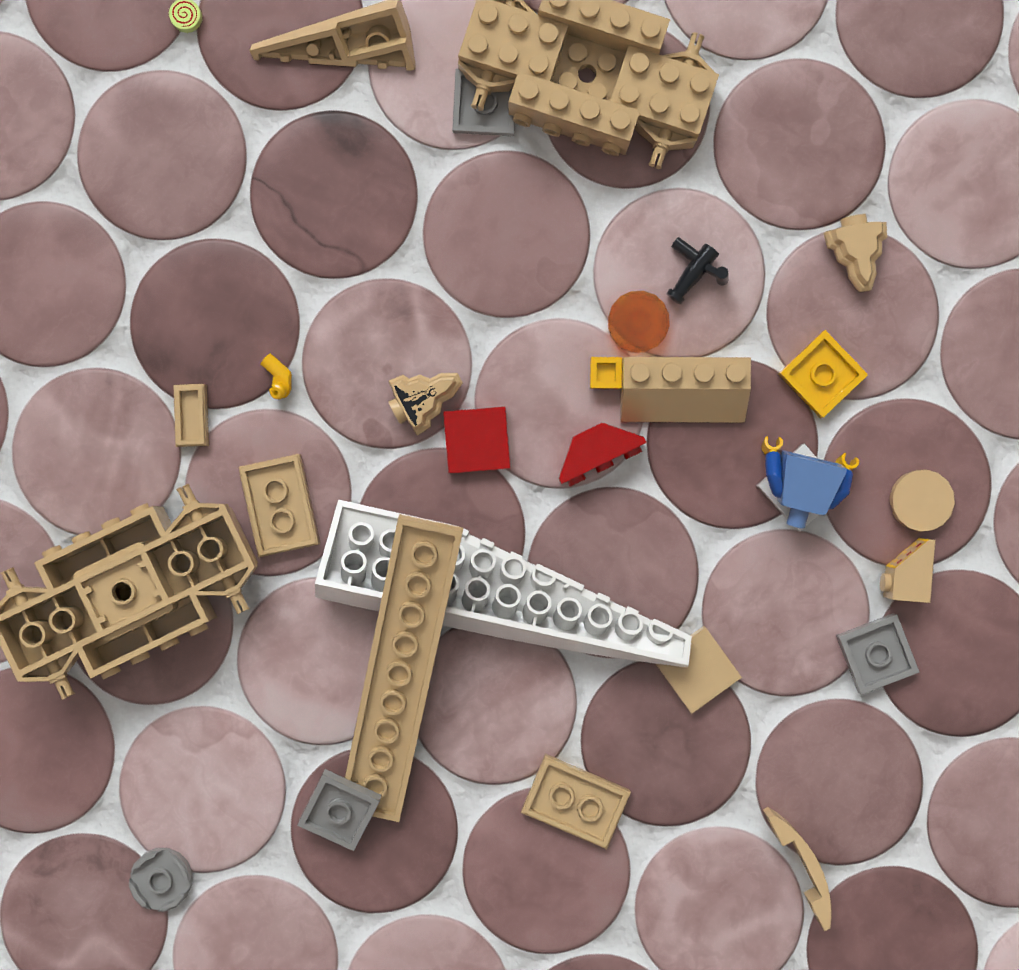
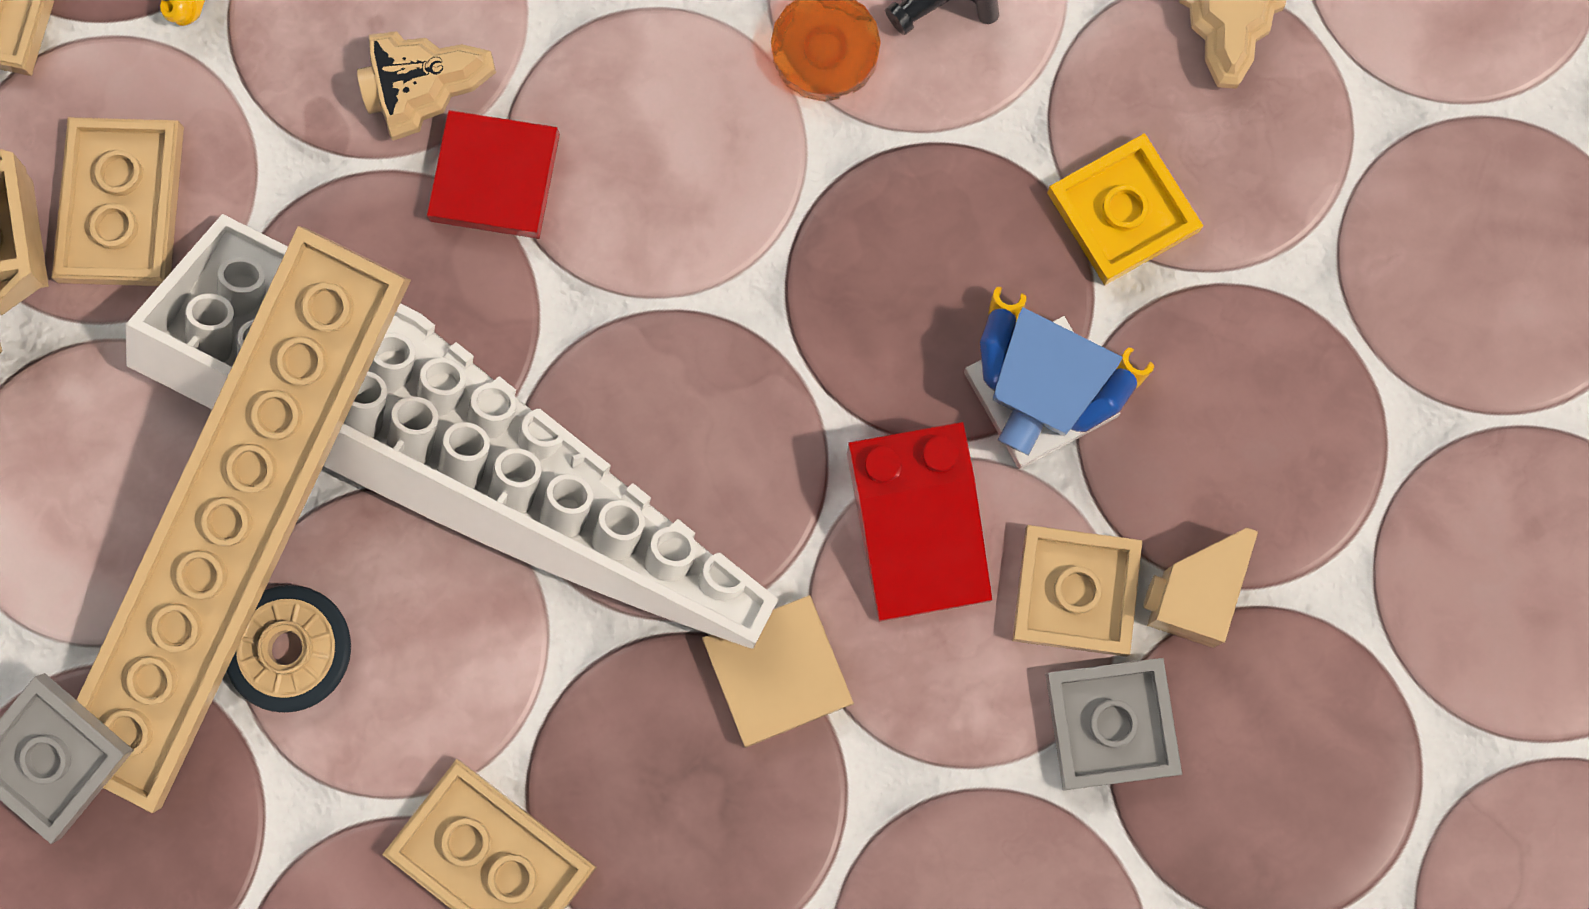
camera: 10 degrees right, 10 degrees down
(461, 722) = (318, 668): none -> tan wheel
(596, 450) = (694, 236): red slope -> none
(605, 372) = (746, 113): yellow plate -> none
(685, 389) = (874, 170): tan slope -> none
(753, 573) = (920, 521): none -> red slope
(843, 589) = (1077, 590): none -> tan tile
(922, 500) = (1253, 467): tan tile -> none

